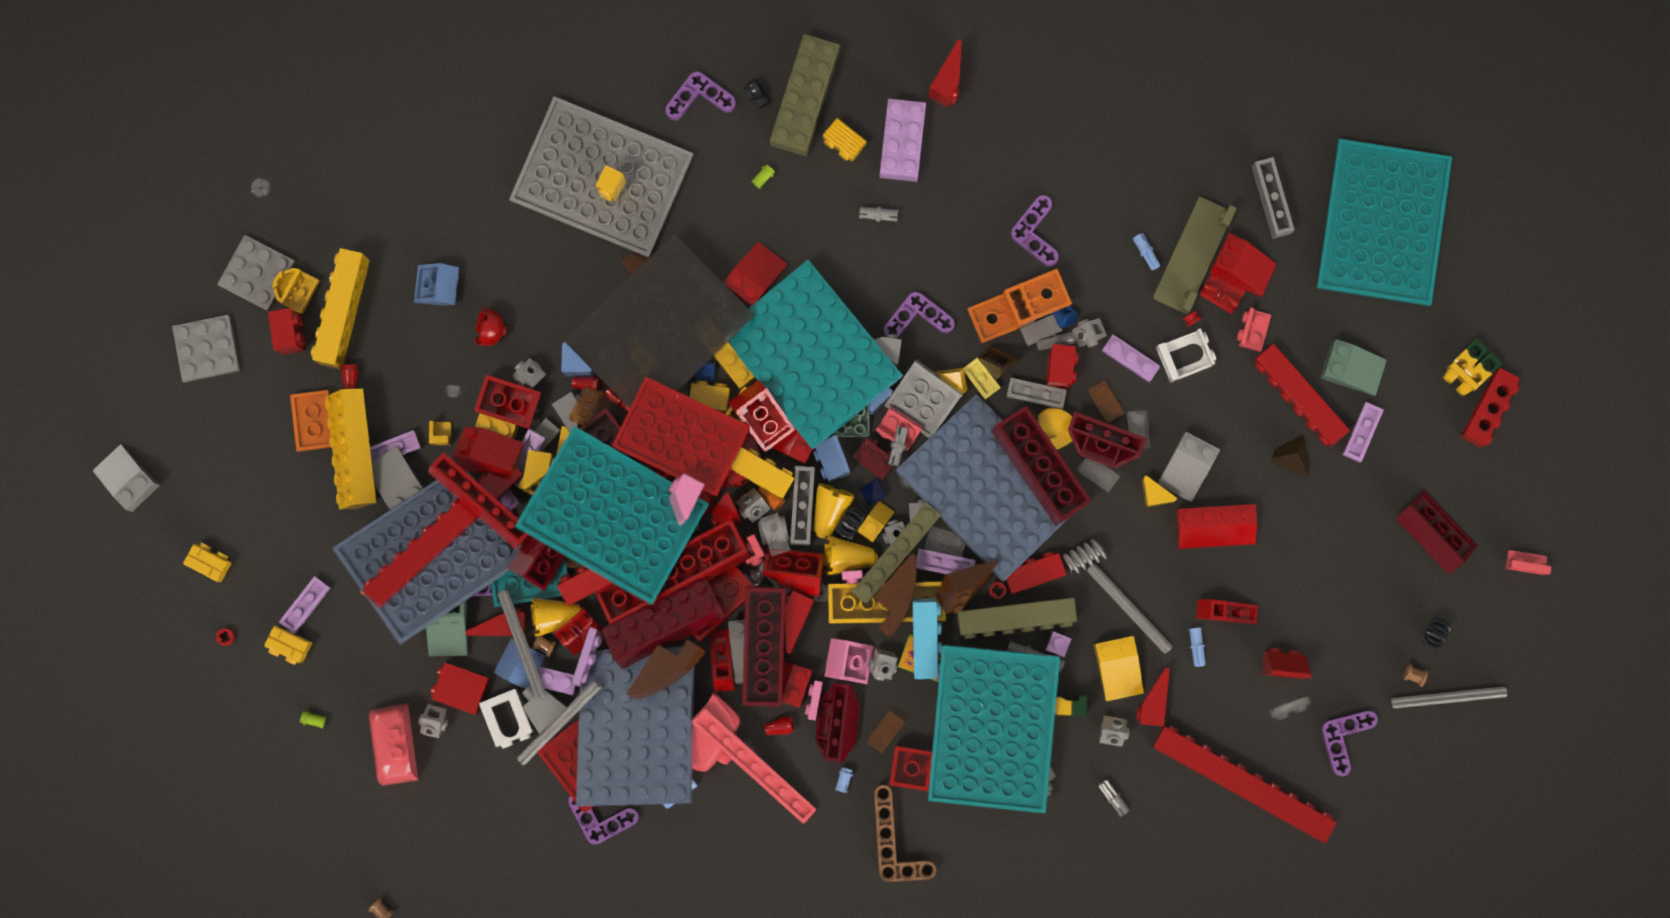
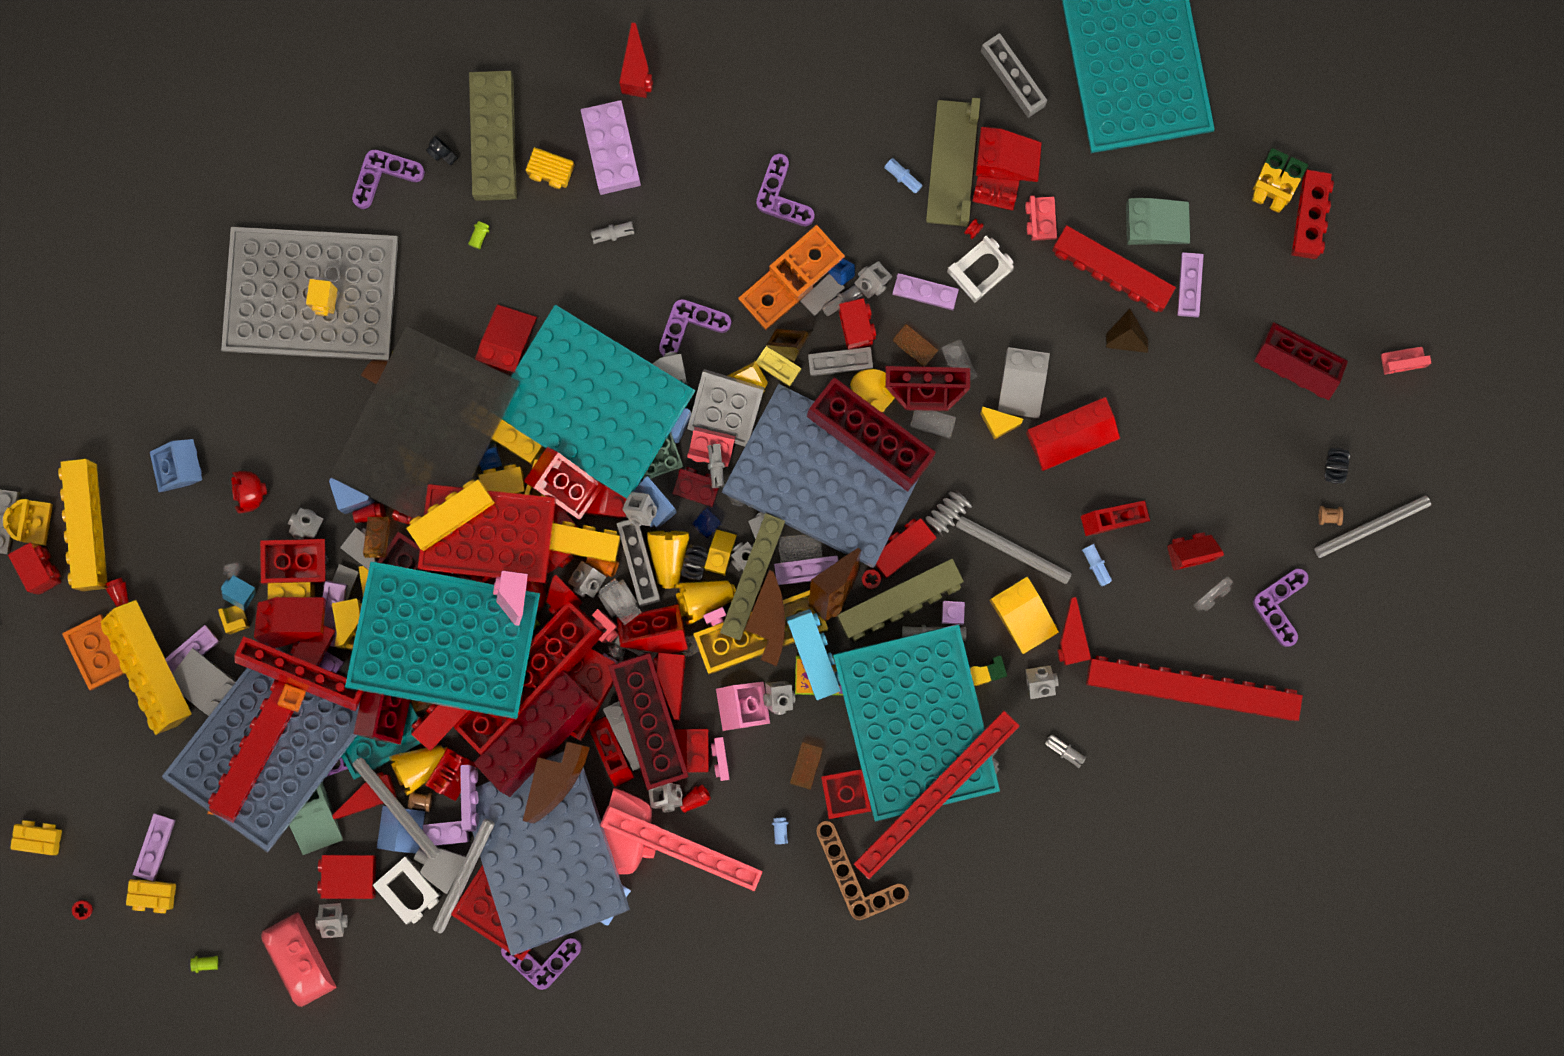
camera: 20 degrees left, 0 degrees up
(451, 412) = (238, 592): none -> dark azure brick
(466, 519) = (291, 697): none -> orange tile
(656, 409) = (450, 515): none -> yellow brick
(756, 717) = (666, 797): none -> light grey brick
(819, 461) = (640, 509): none -> light grey brick
(837, 722) = (753, 773): dark red wedge -> none
(989, 796) = (936, 794): none -> red plate

